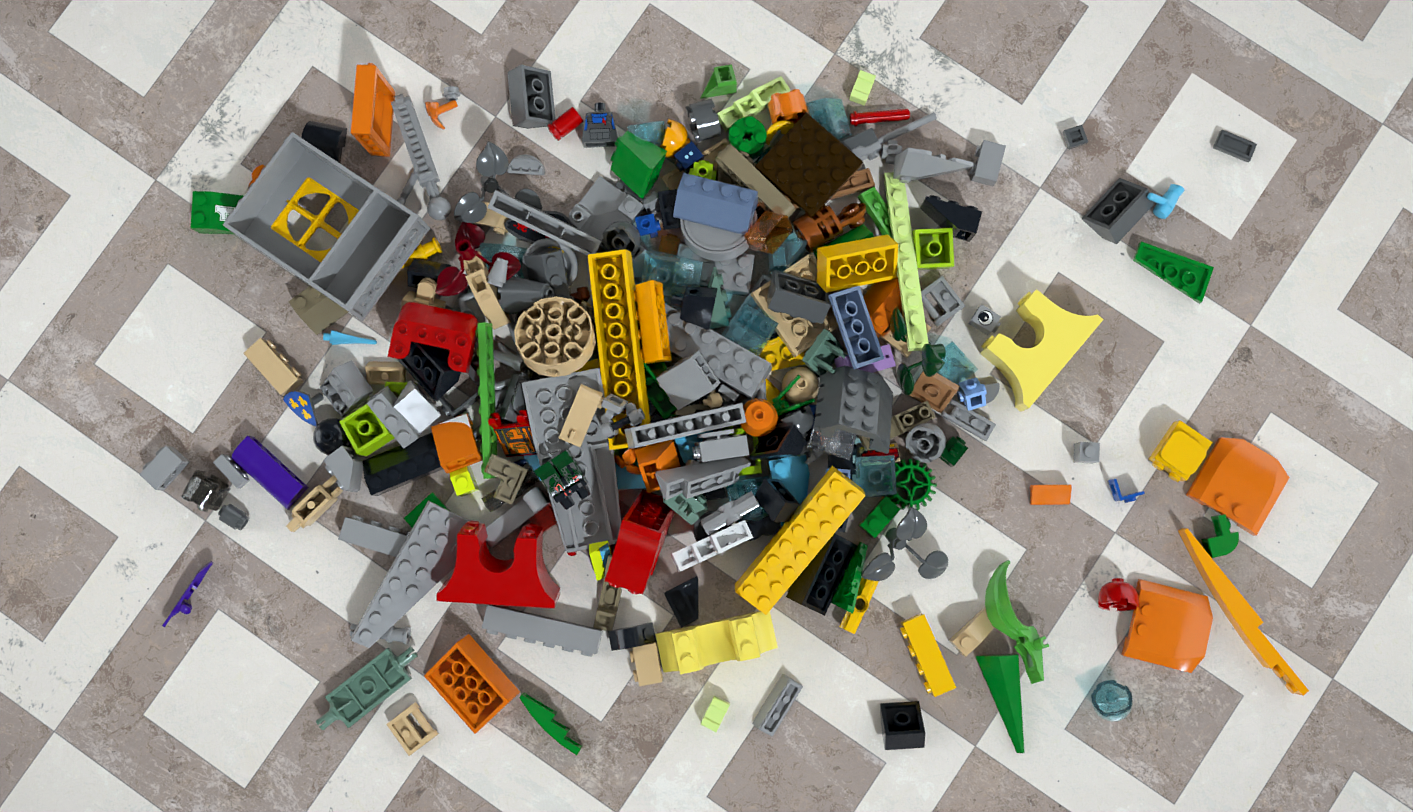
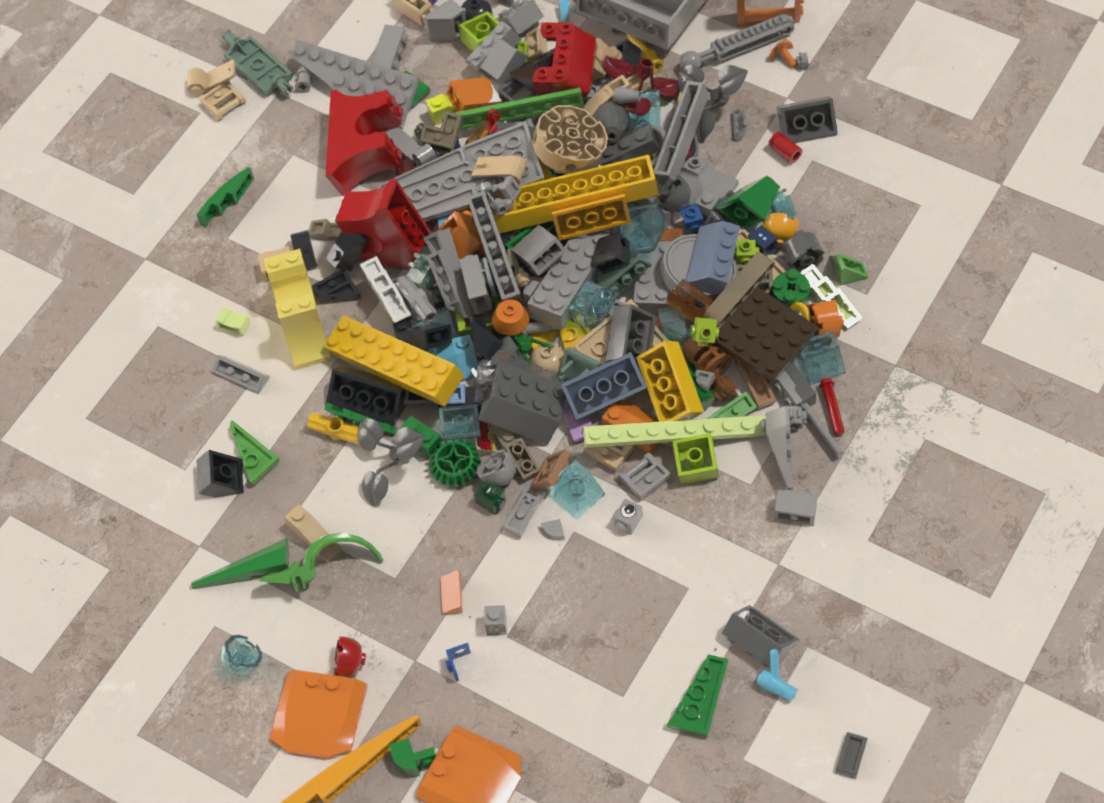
camera: 85 degrees right, 25 degrees down
(382, 743) = (200, 81): none -> tan door
(401, 465) = (449, 59): black slope -> none
(407, 189) = (696, 37): light grey piece -> none
(471, 683) = (262, 136): orange slope -> none
(542, 629) = (308, 184): light grey brick -> none
(567, 482) = (441, 166): hips -> none
(599, 128) = (786, 172): torso -> none
(652, 598) = (347, 251): none -> black slope
(809, 219) = (699, 326): none -> lime brick
(851, 230) = (704, 379): none -> light grey tile
(862, 87) = (860, 388): yellowish green piece -> none
(882, 688) = (255, 456): none -> bright green wing
(928, 655) = (287, 491): yellow brick -> none
(931, 355) = (583, 455): dark green plant -> none
(952, 215) = (729, 474): black slope -> none
(972, 393) = (549, 507): light blue brick -> none
(1057, 340) = (603, 576): light yellow piece -> none
(1075, 137) = (836, 589): dark grey plate -> none
(1180, 451) = (502, 711): yellow brick -> none

